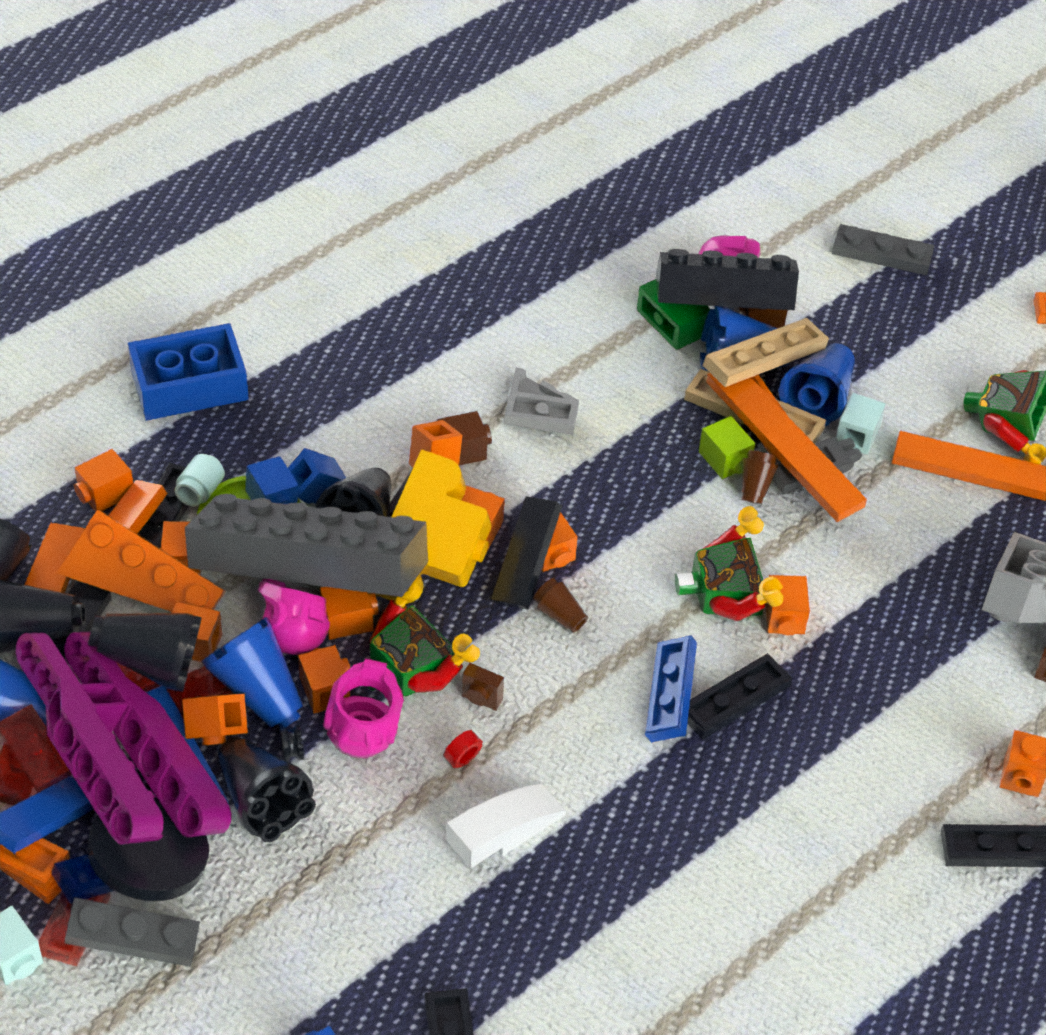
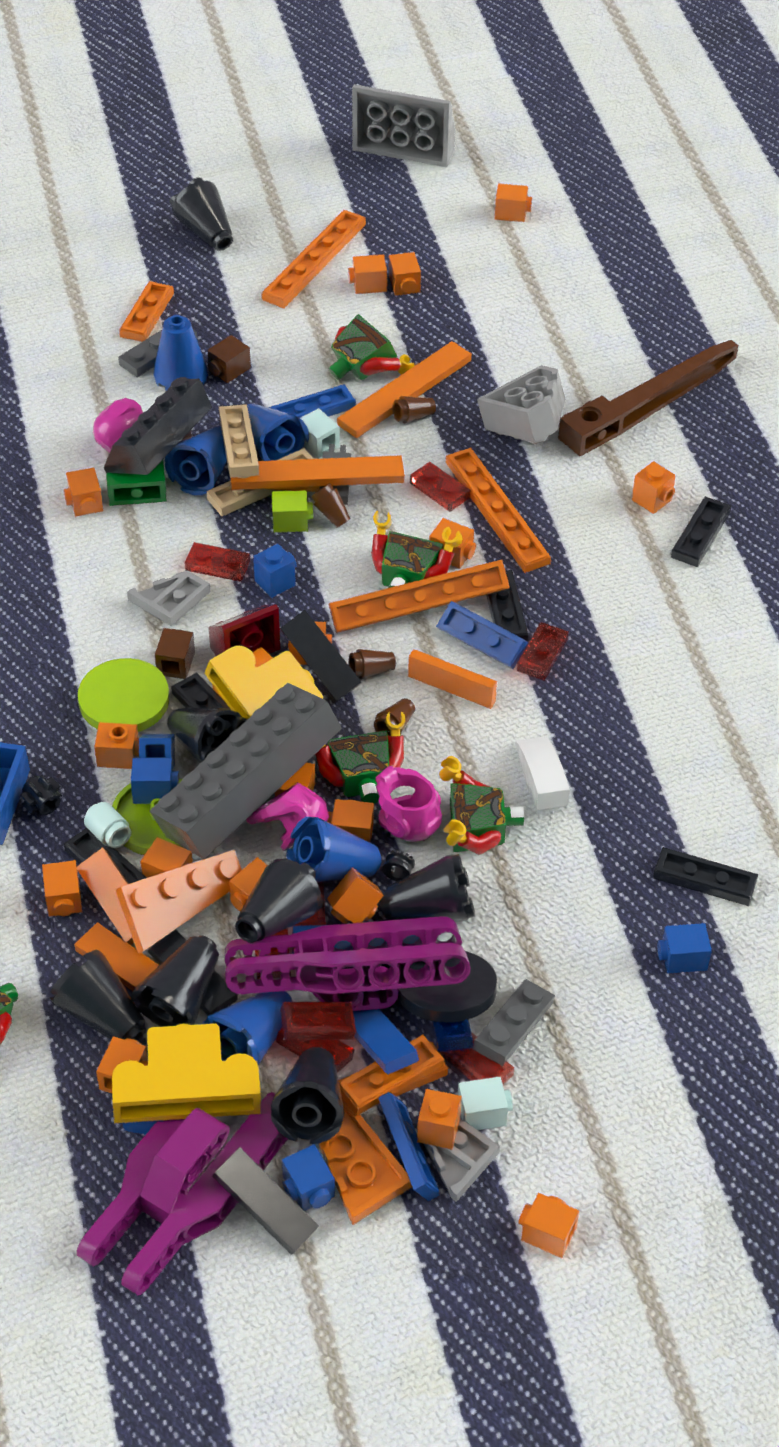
camera: 60 degrees left, 0 degrees up
(213, 417) = (41, 795): none -> black gear
(300, 434) = (116, 745): none -> orange brick
(374, 423) = (124, 693): none -> lime piece
(399, 784) = (476, 811): none -> torso
(436, 438) = (189, 664): orange brick -> none
(463, 749) = (467, 763): red tile -> none
(482, 686) = (418, 735): reddish brown plate -> none
(499, 657) = (404, 705): none -> reddish brown cone
(516, 476) = (250, 629): none -> dark red slope
(585, 686) = (452, 678): none -> orange tile
(618, 423) = (217, 561): none -> clear red plate
(625, 276) = (83, 492): none -> orange brick
(630, 469) = (274, 570): none -> blue brick
(683, 607) = (418, 596): none -> orange tile
(687, 755) = (542, 651): none -> clear red plate
(868, 265) = (178, 353): none -> blue cone
(873, 563) = (439, 486): none -> clear red plate
(879, 631) = (498, 510): none -> orange tile
(906, 406) = (328, 401): none -> blue tile
(907, 306) = (229, 359): none -> reddish brown brick
(929, 218) = (146, 311): none -> orange tile
(969, 489) = (412, 408): none -> reddish brown cone

